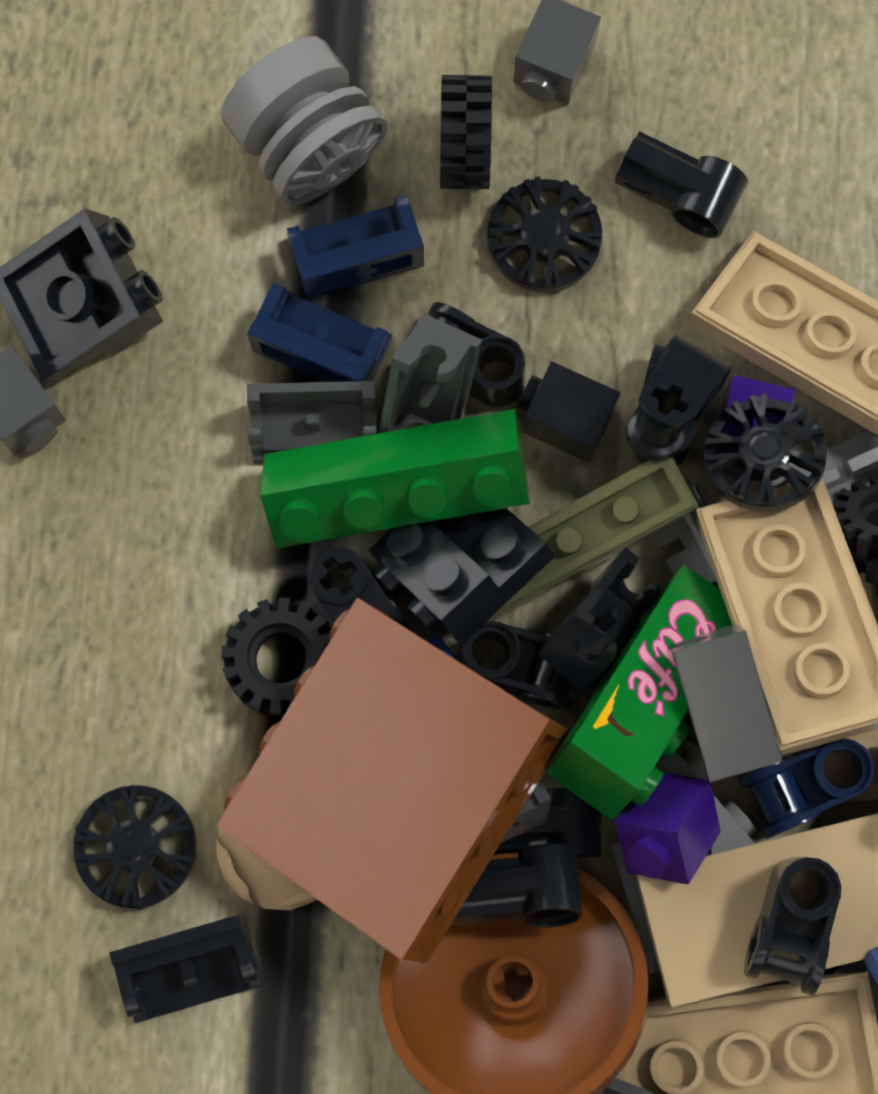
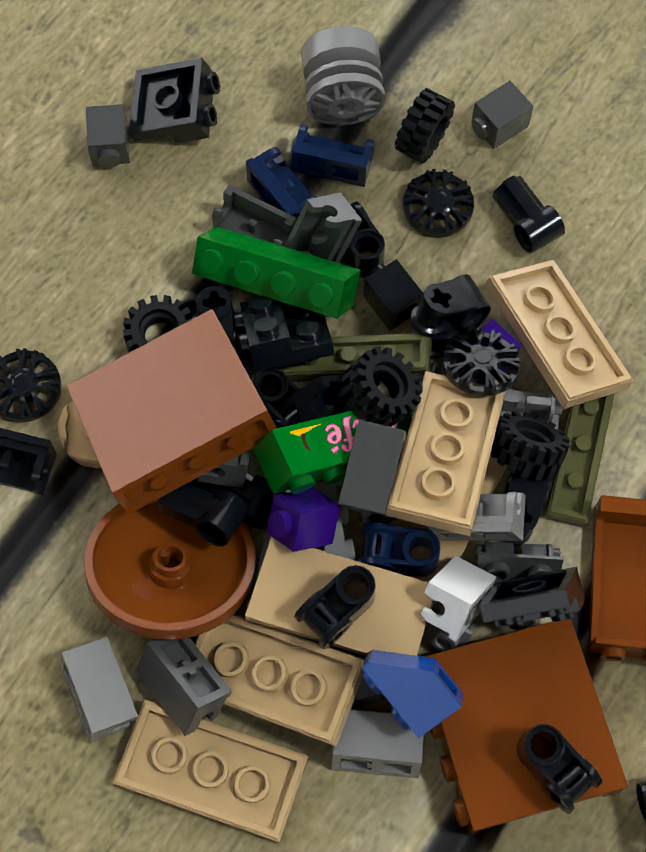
camera: 30 degrees right, 10 degrees down
(641, 594) = (394, 375): none -> black tyre

